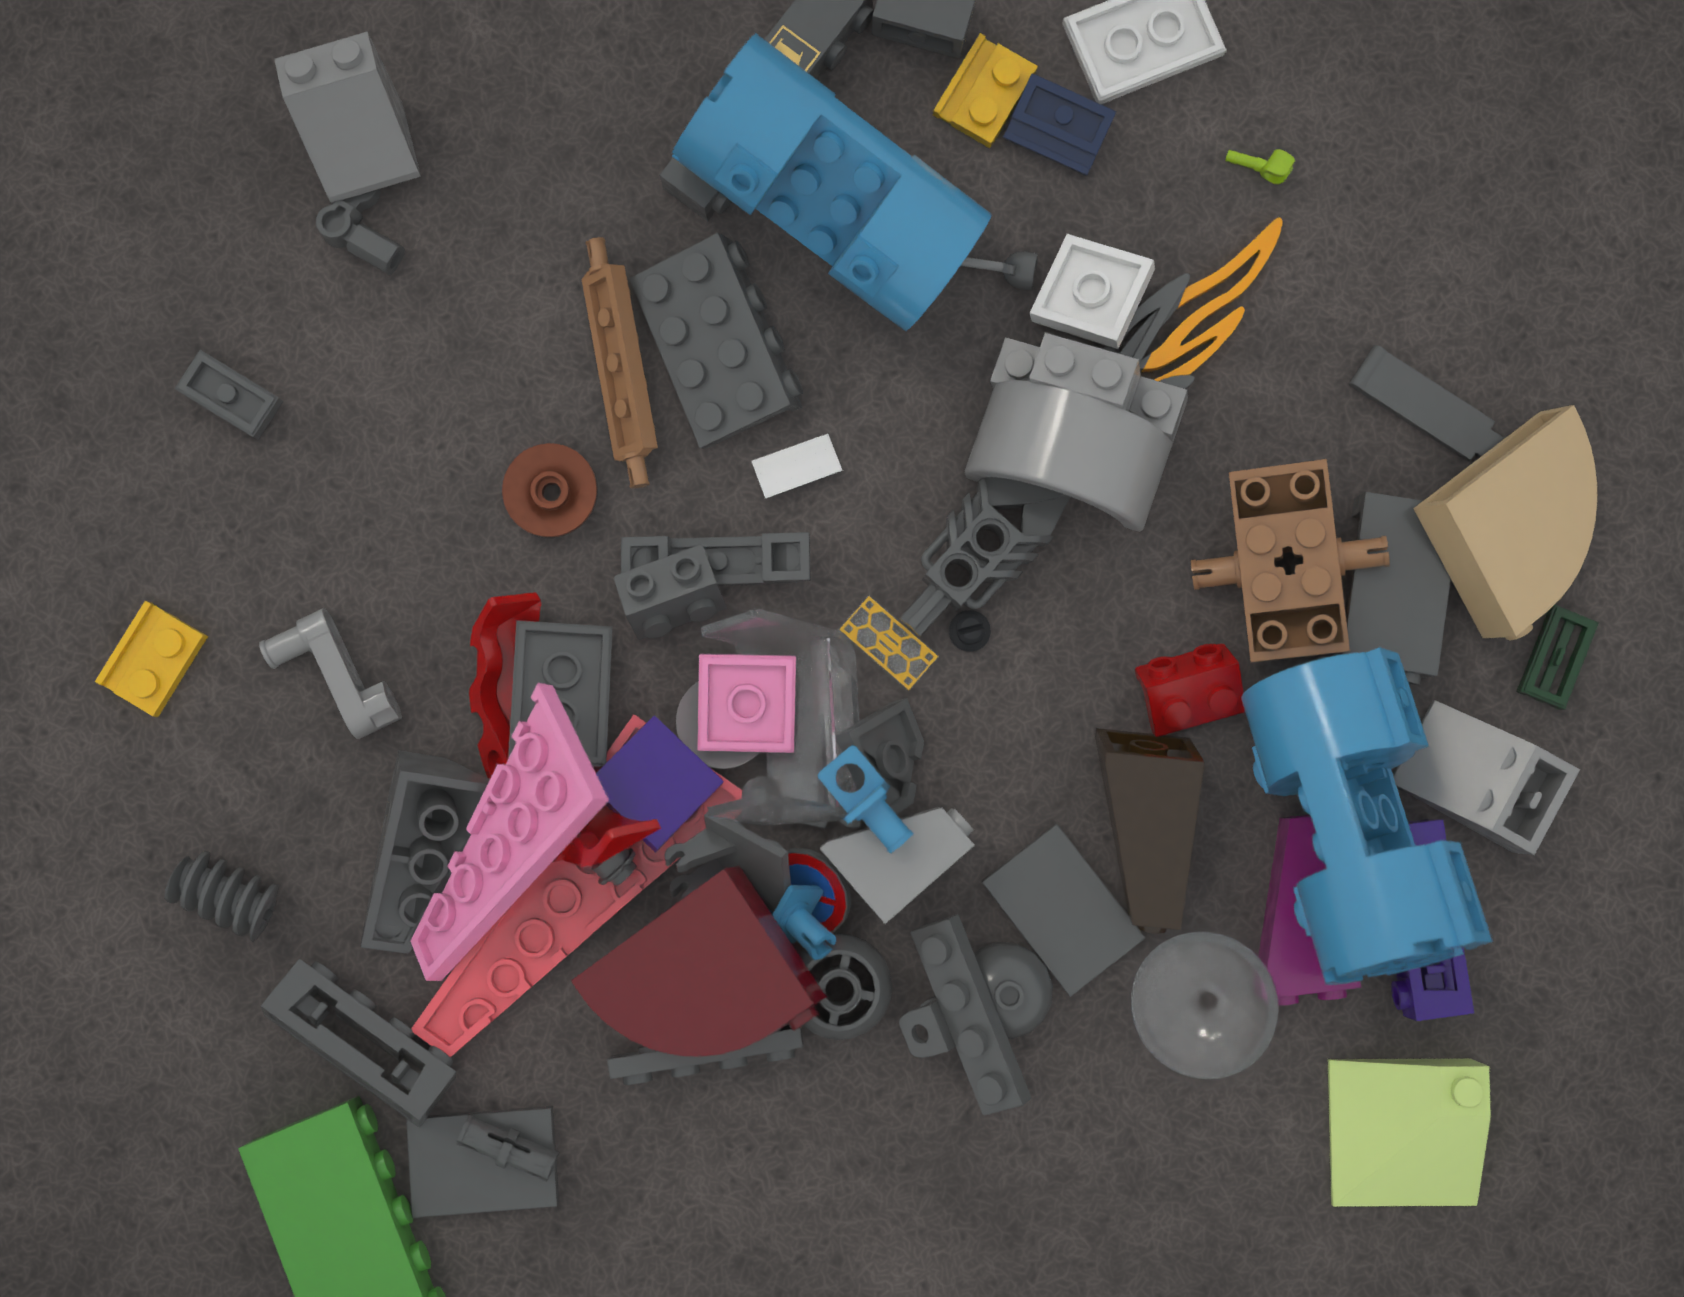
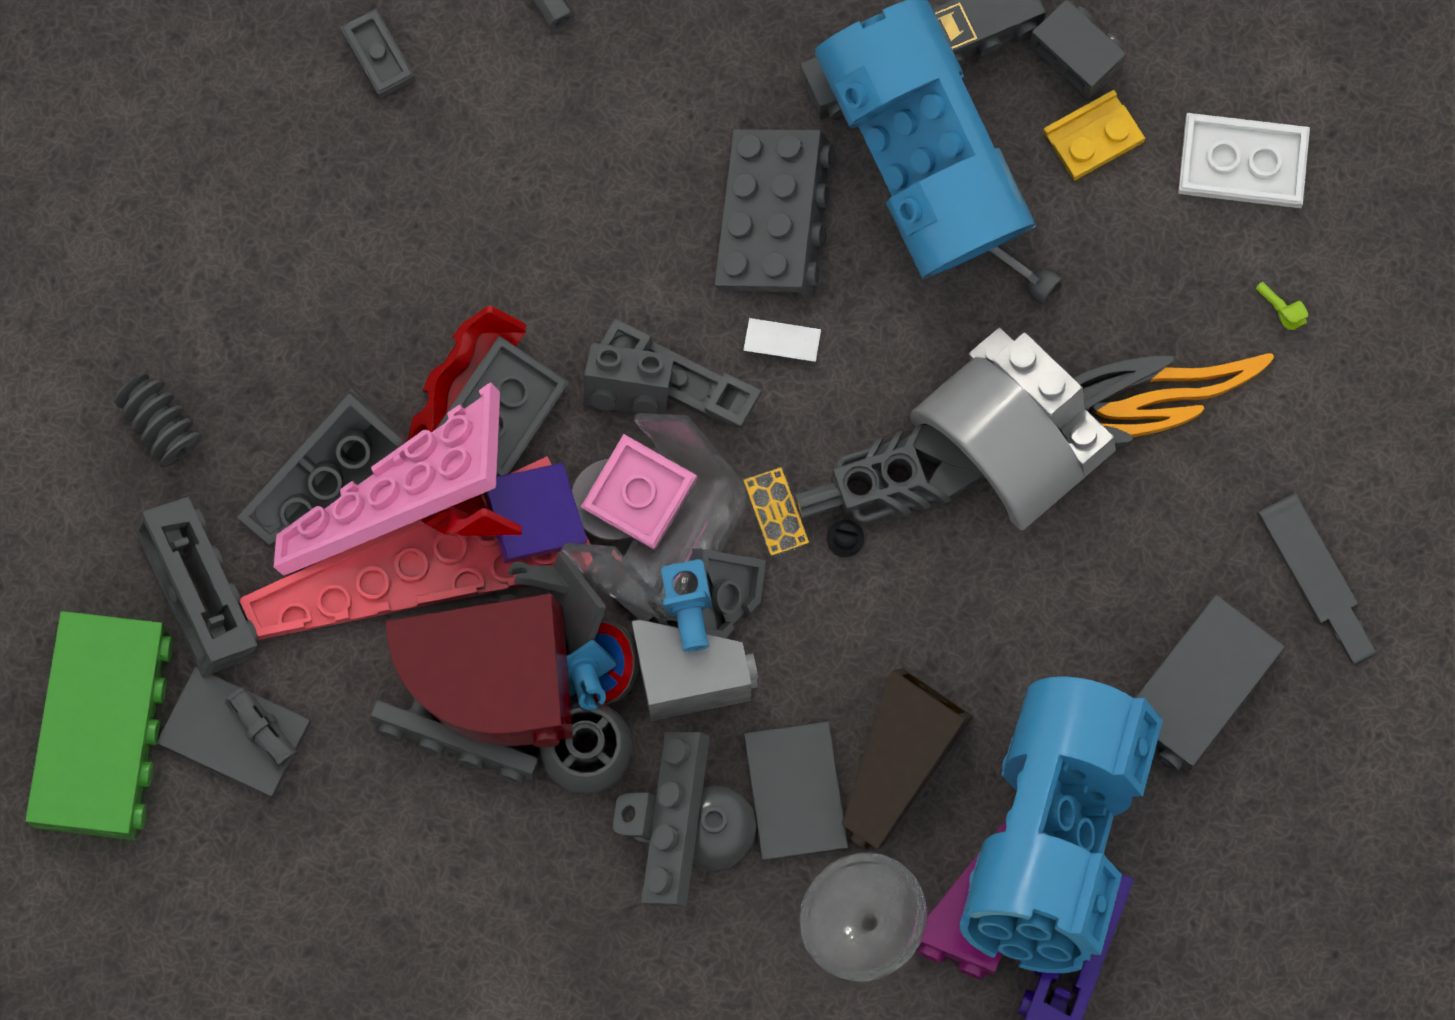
camera: 30 degrees right, 10 degrees down
(151, 659) = (204, 217): yellow plate -> none
(360, 708) = (342, 340): light grey beam -> none
(536, 470) = (576, 235): copper dish -> none
(616, 868) = (468, 557): dark grey plate -> none
(619, 362) = (689, 188): medium nougat plate -> none
(1059, 124) = (1136, 191): dark blue plate -> none
(1092, 291) = (1088, 329): white plate -> none
(1191, 688) = (992, 675): red bracket -> none
(1282, 513) = (1133, 576): medium nougat slope -> none
(1486, 779) = (1187, 868): light grey slope -> none
(1517, 522) = (1323, 683): tan brick -> none
(1541, 648) = (1276, 836): dark green tile -> none

